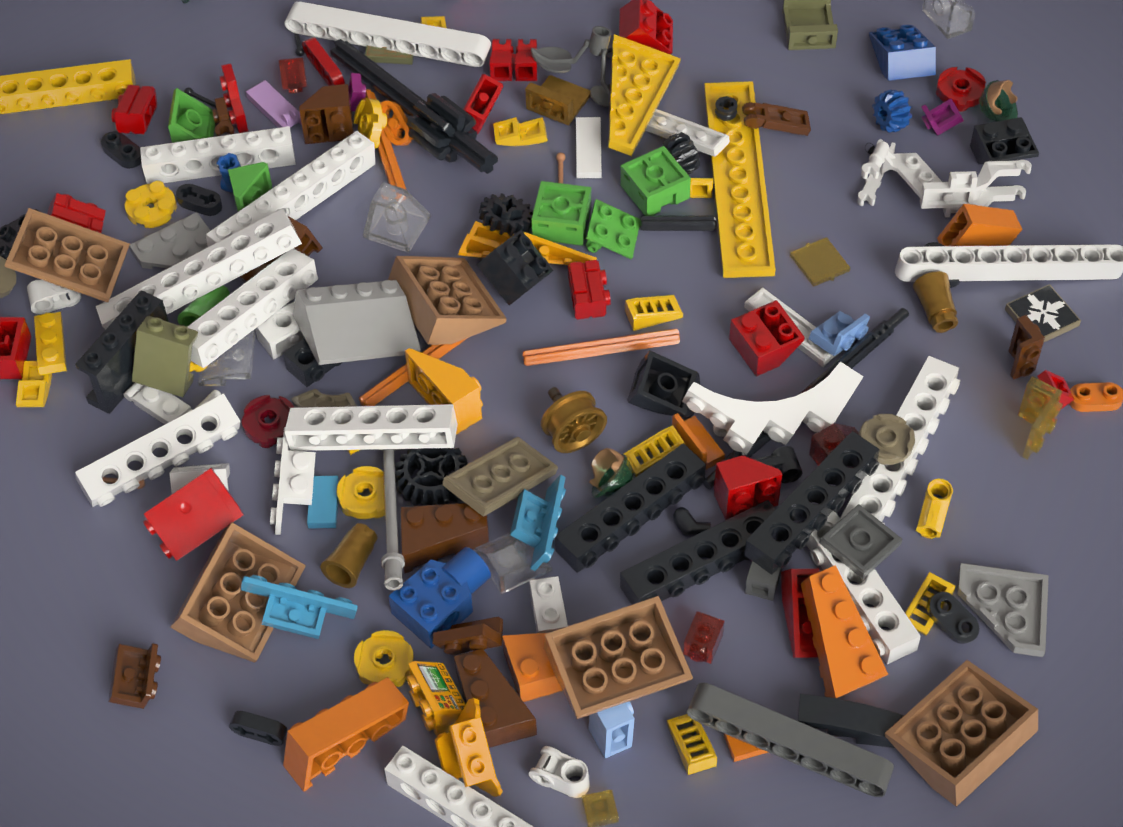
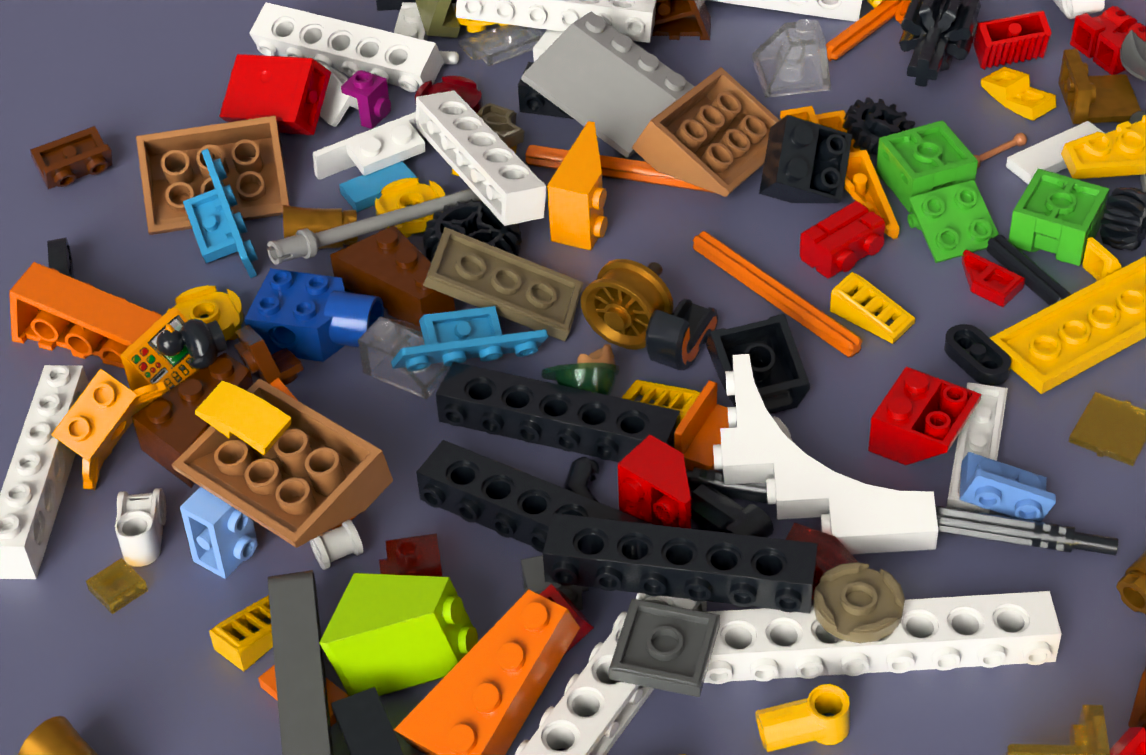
camera: 60 degrees right, 10 degrees down
(230, 458) = (371, 97): none -> magenta bracket
(448, 663) = (201, 341): none -> black animal
(547, 604) = (359, 404): white brick -> none
(579, 654) = (244, 415): none -> yellow slope
(619, 414) = (679, 336): none -> black animal
(667, 243) = (990, 279): none -> red tile
(727, 284) = (977, 354): none -> black plate
(767, 661) = (397, 632): none -> lime slope

